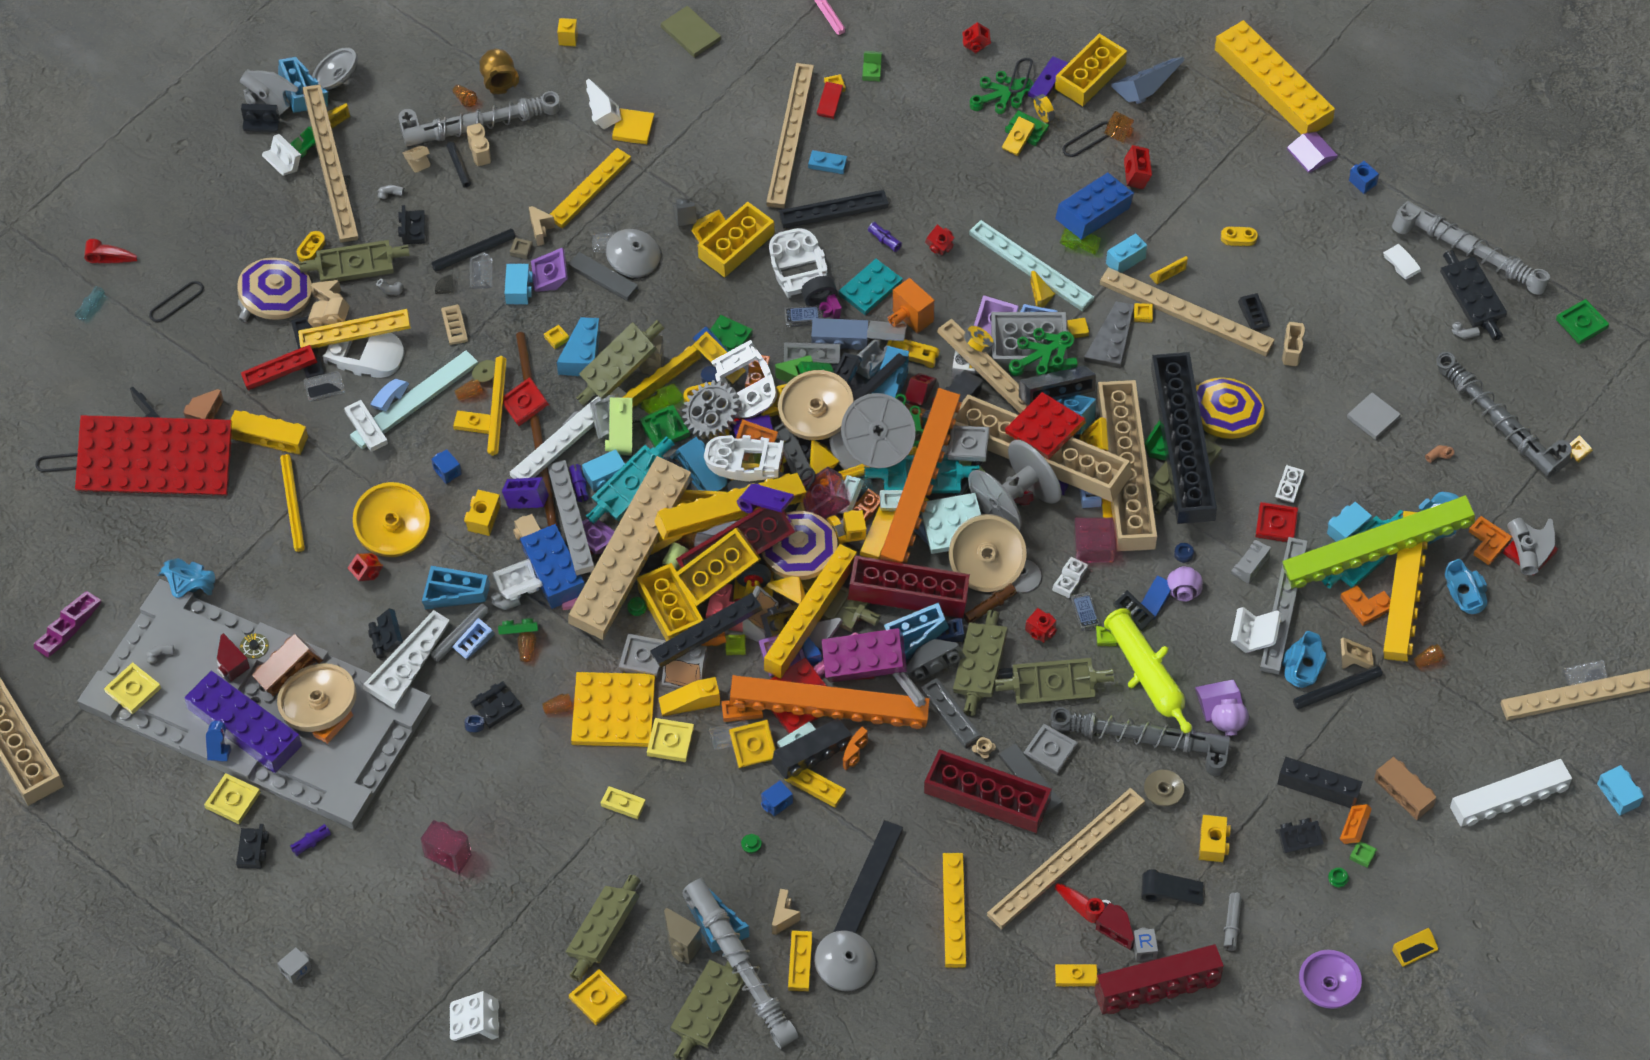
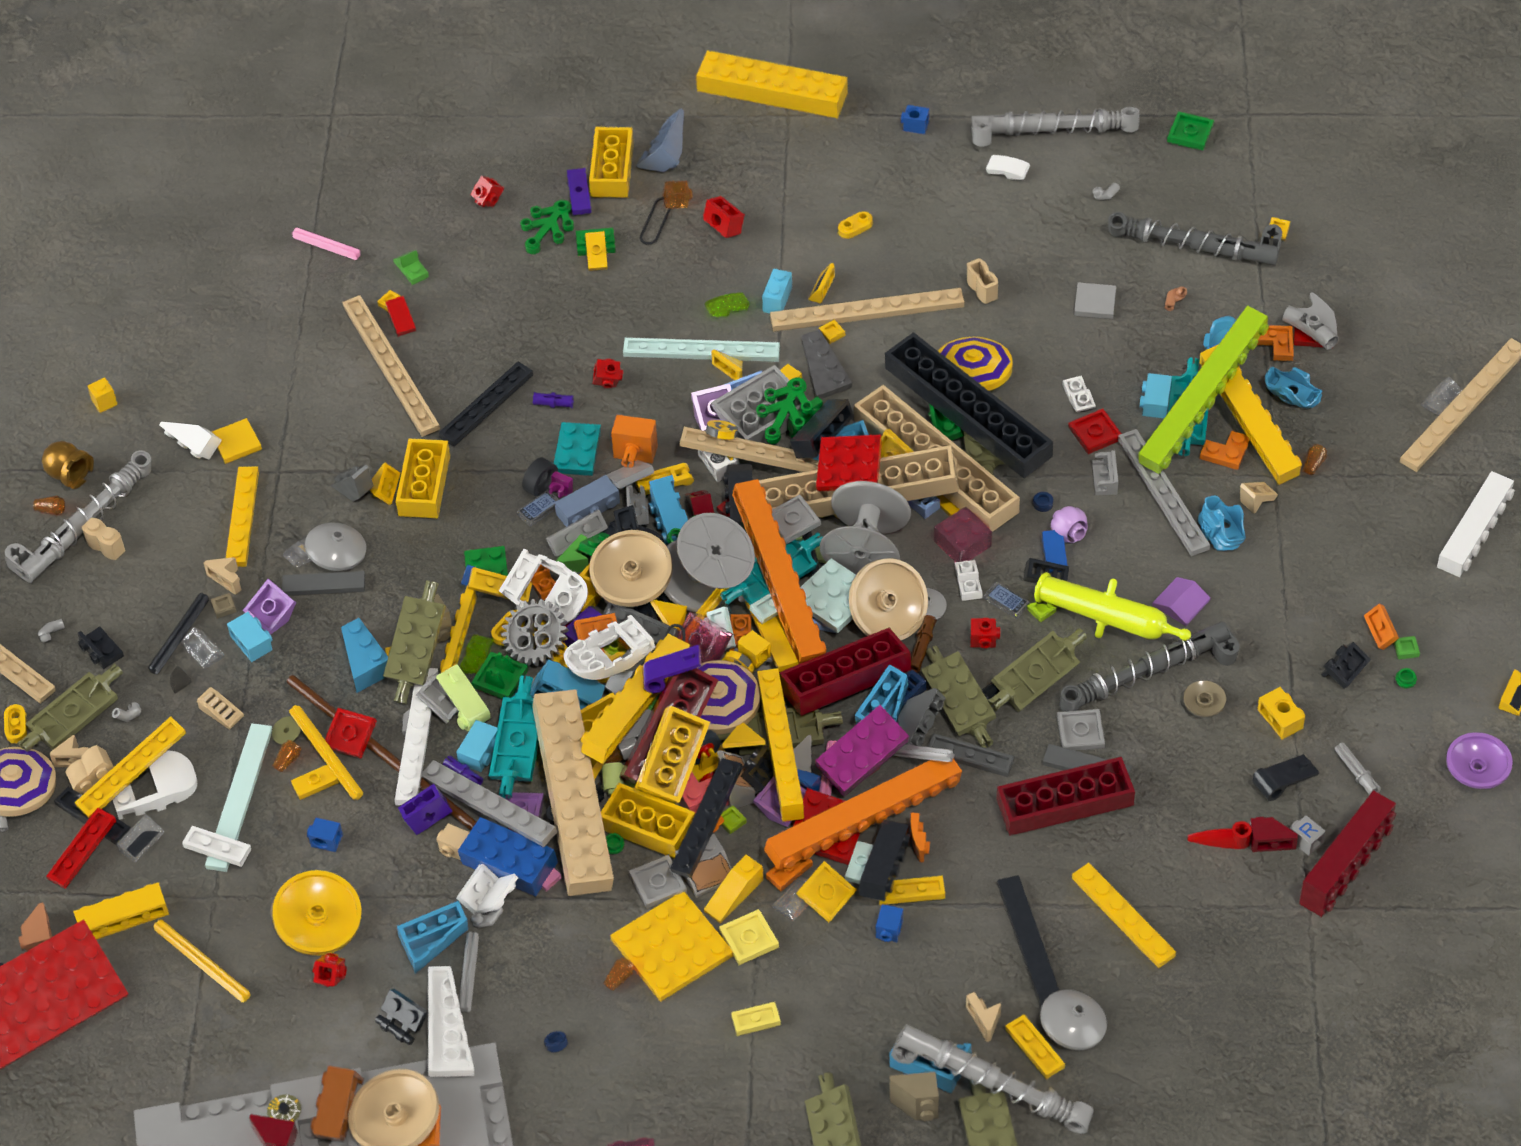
camera: 35 degrees left, 5 degrees down
(187, 577) = (161, 1090): dark azure piece -> none
(392, 390) = (212, 804): light blue slope -> none
(417, 158) = (51, 584): tan slope -> none
(461, 171) = (97, 568): black piece -> none
(477, 625) = (484, 951): light blue slope -> none
(483, 522) = (396, 842): yellow brick -> none
(498, 709) = (566, 1014): black plate -> none
(510, 627) = (529, 924): green plate -> none
(526, 646) = (542, 941): clear orange cone -> none
(556, 336) = (326, 660): yellow tile -> none
(690, 31) = (217, 331): olive tile -> none
(708, 374) = (500, 607): dark blue tile -> none
(751, 843) = (900, 977): green plate -> none
(795, 249) = (483, 455): white slope -> none
(827, 162) = (443, 369): dark azure plate -> none
(881, 376) = (666, 510): black axle -> none
(983, 742) = (1028, 760): tan plate -> none
(1027, 76) = (556, 216): black piece -> none
(1044, 108) = (599, 215): yellow piece -> none
(1065, 858) = (1177, 810): tan plate -> none
(1075, 974) = (1272, 899): yellow plate -> none
(1094, 205) = (716, 267): blue brick -> none
(1230, 716) = (1205, 606): lavender plant -> none
(1253, 298) = (921, 269): black slope -> none
(1255, 632) = (1164, 524): white bracket -> none
(1311, 151) = (853, 125): slope -> none
(1319, 782) = (1324, 612): black brick -> none
(1337, 687) = (1265, 530): black axle -> none
(1405, 788) = (1393, 573): medium nougat brick -> none
(1474, 293) = (1087, 158): black plate -> none

